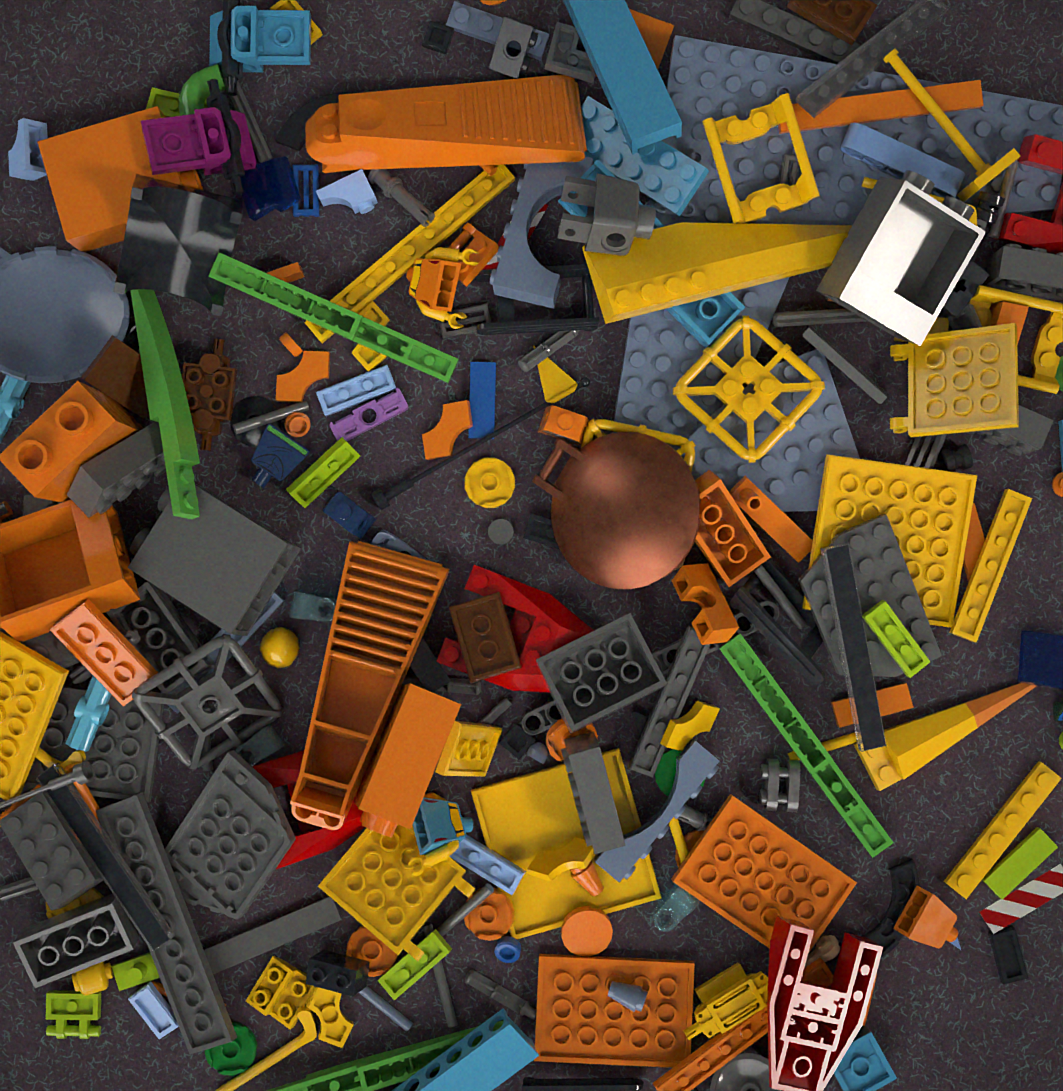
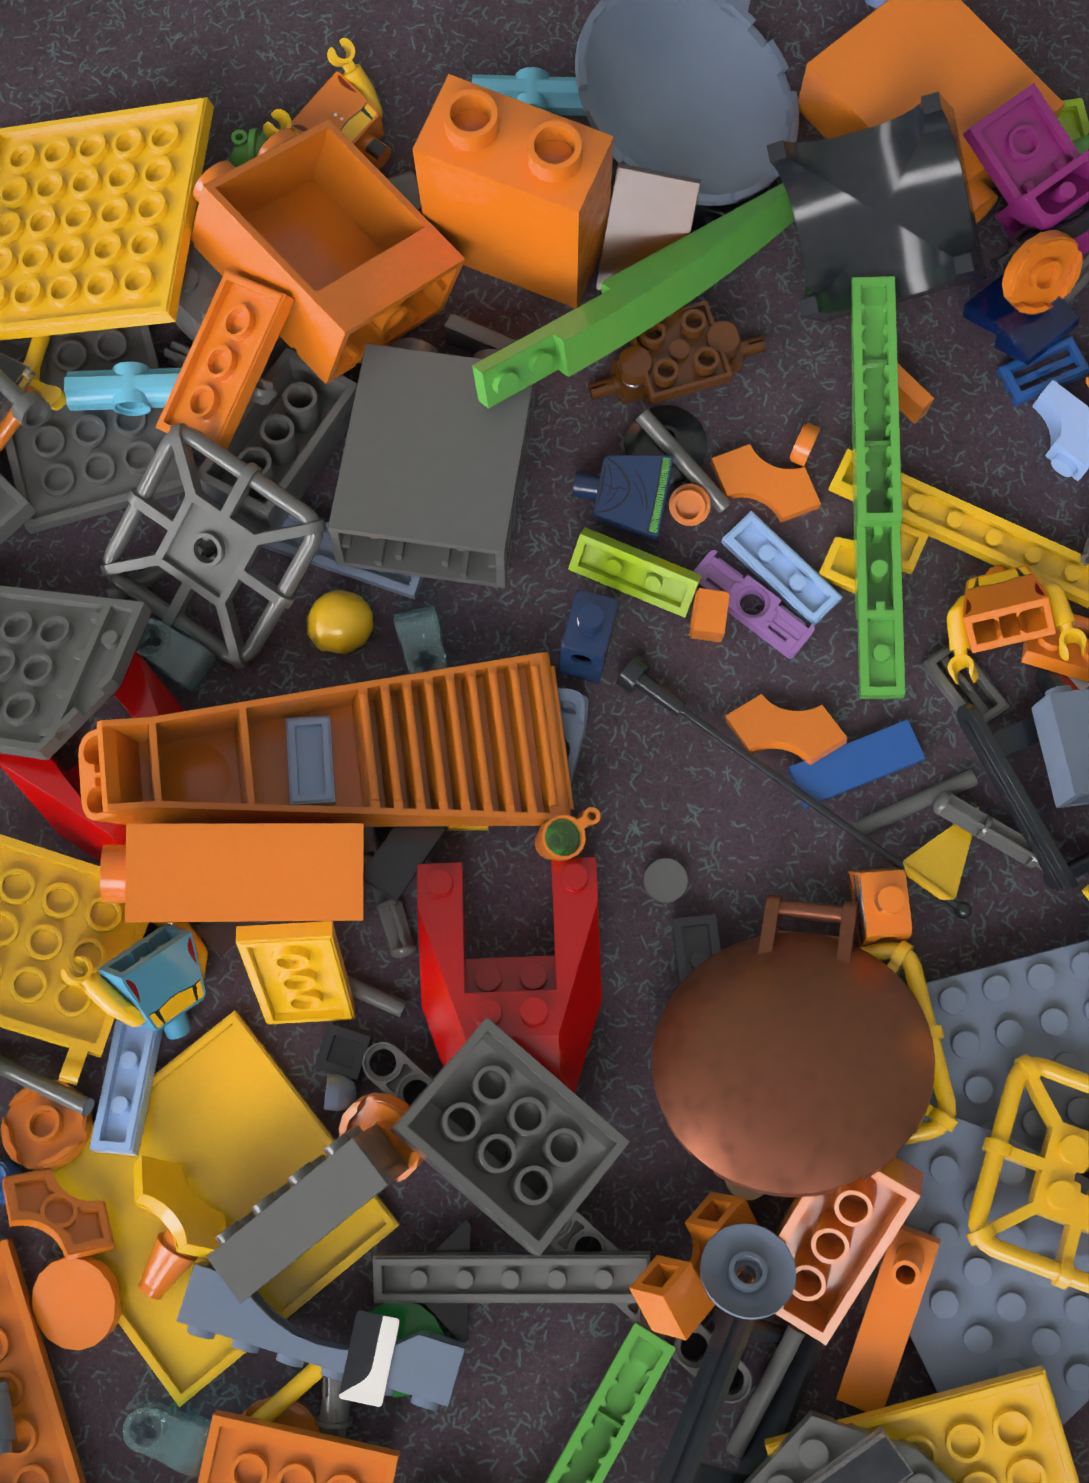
camera: 70 degrees right, 10 degrees down
(119, 471) = (501, 267): dark grey brick -> none
(148, 499) = (472, 336): none -> dark grey tile
(252, 168) = (1042, 271): none -> orange tile
(355, 696) = (310, 761): none -> light blue tile
(366, 442) = (709, 615): none -> orange slope
(456, 576) = (565, 835): none -> piece
(485, 637) = (488, 923): reddish brown tile -> none
(486, 489) = (722, 837): yellow tile -> none
(517, 396) = (914, 803): none -> dark grey bar
(547, 917) = (75, 1224): none -> orange tile
(679, 791) = (369, 1358): none -> sticker
(682, 730) = (470, 1317): yellow tile -> none
(710, 573) = (756, 1252): none -> sand blue dish

